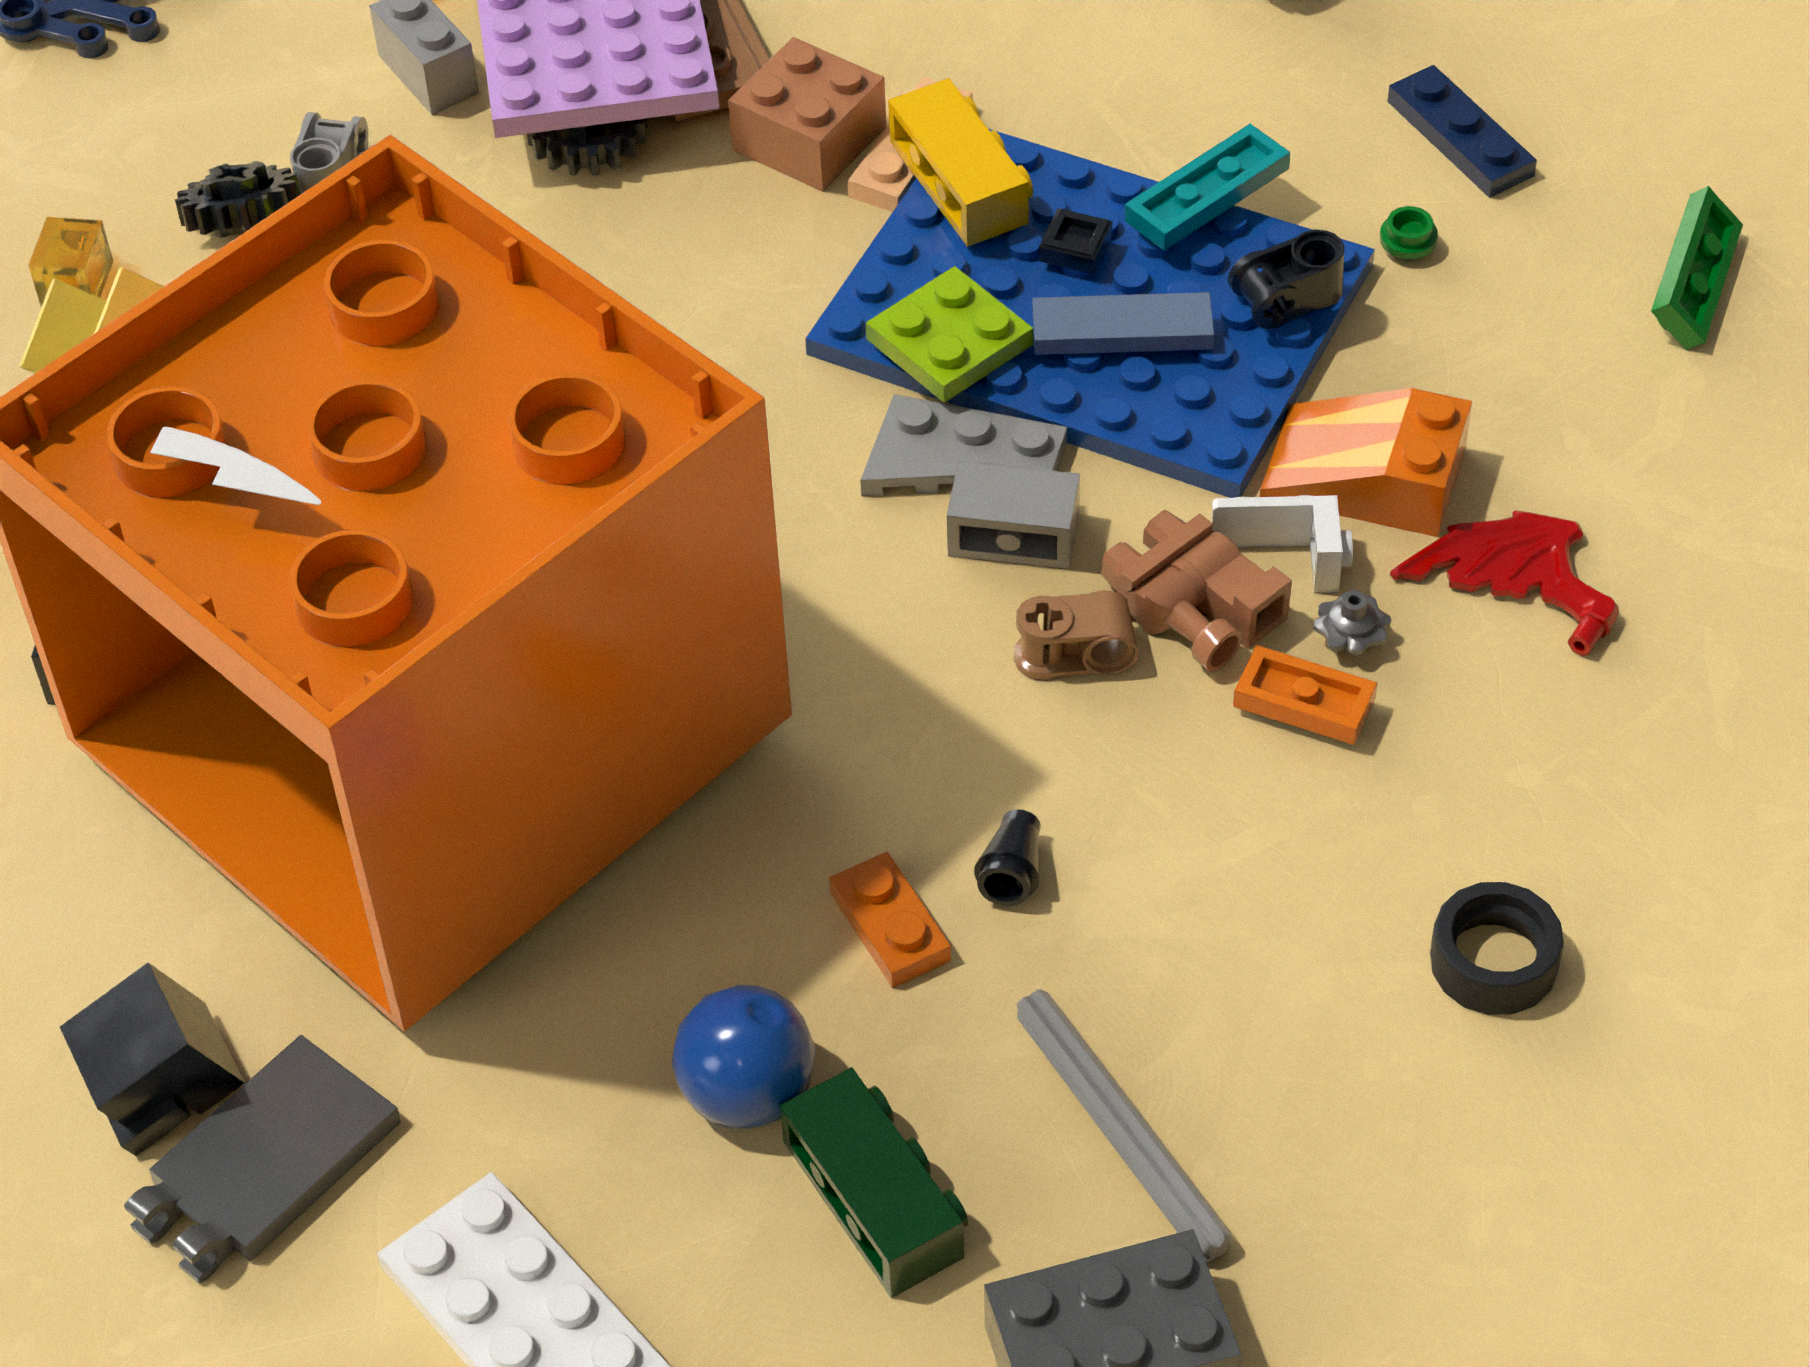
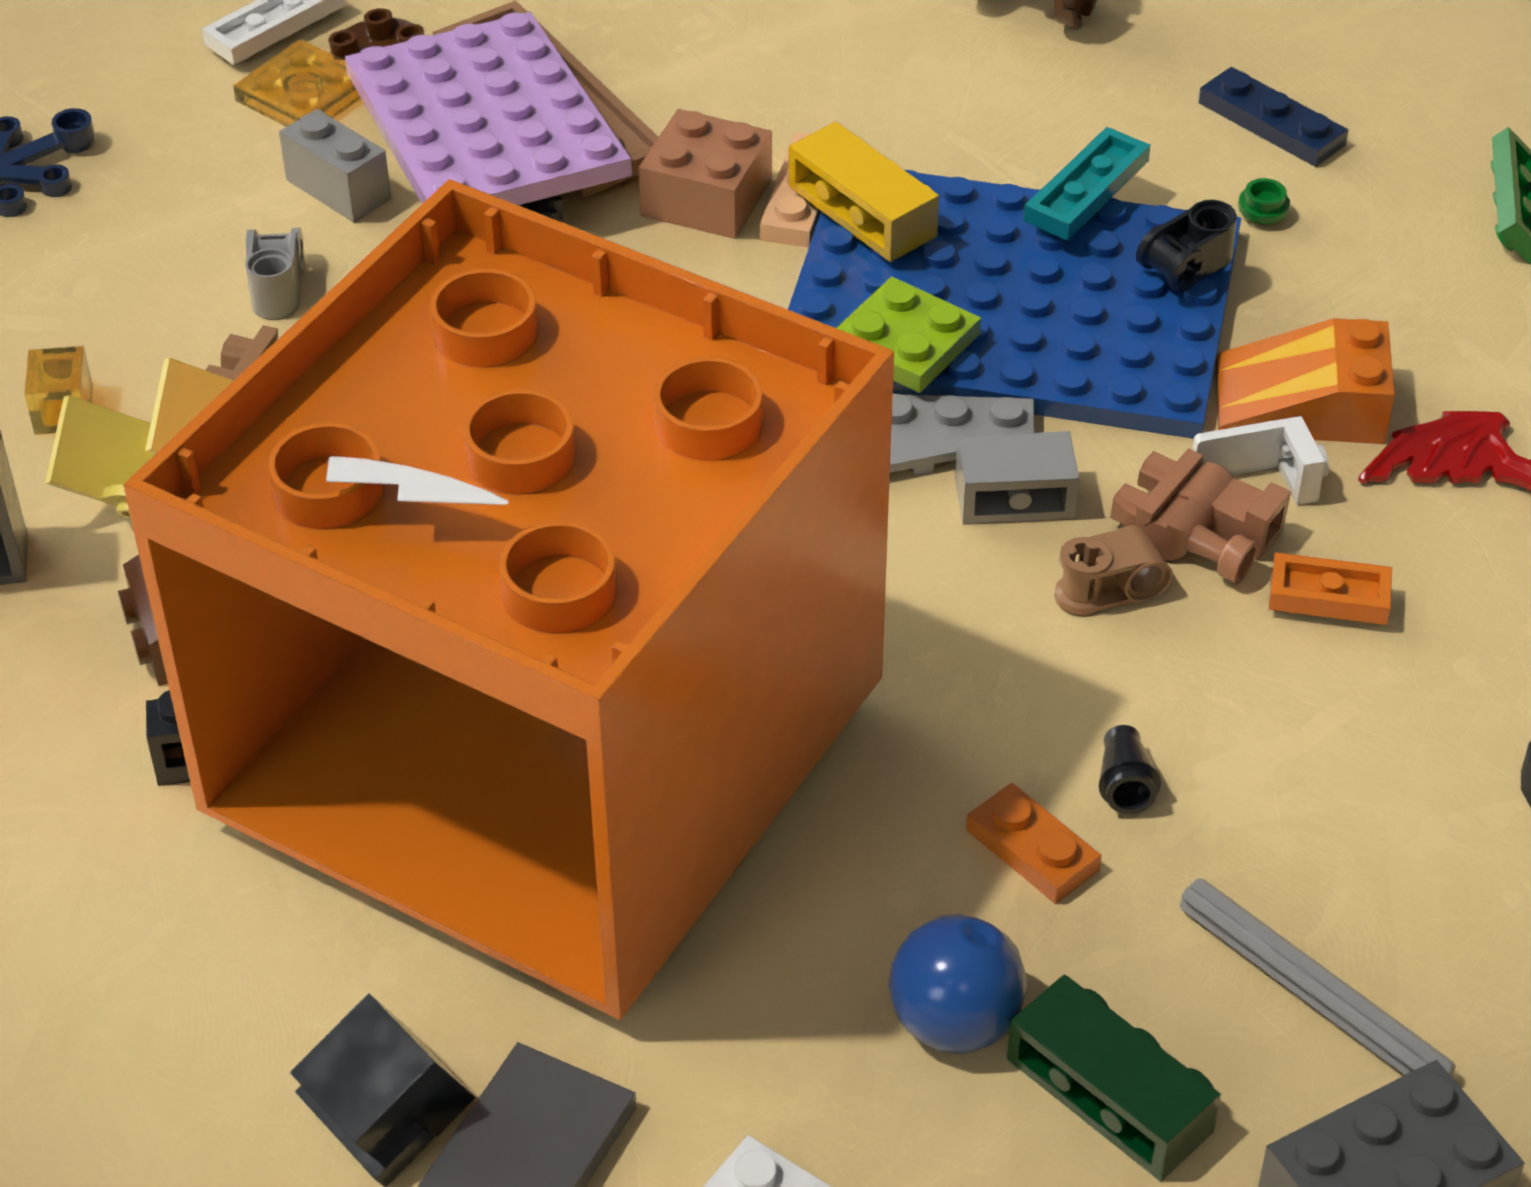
camera: 15 degrees left, 5 degrees down
(235, 198) = (205, 312): black gear -> none
(1075, 241) = (986, 243): black tile -> none
(1122, 323) = (1055, 304): sand blue tile -> none
(1352, 623) = (1347, 522): flat silver plant -> none

